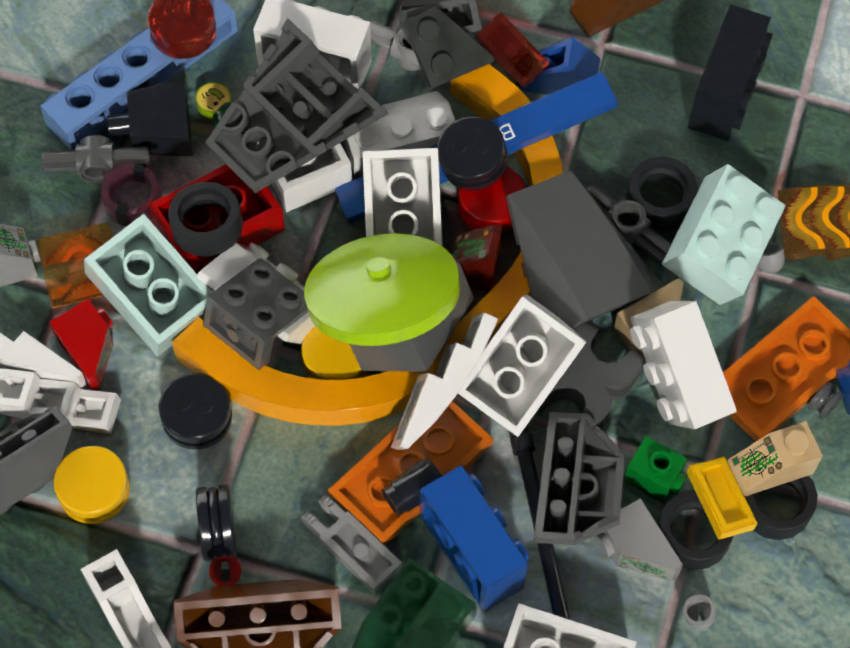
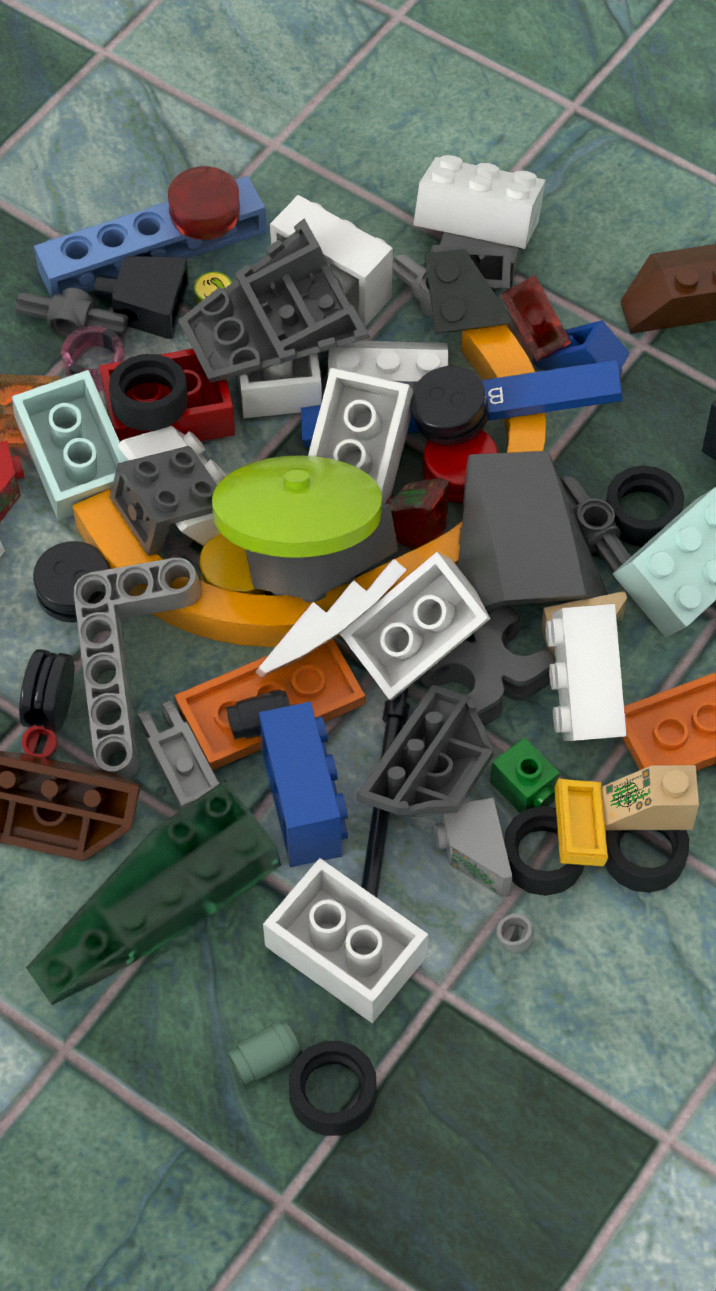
camera: 20 degrees right, 5 degrees down
(262, 471) = (111, 654): none -> light grey beam

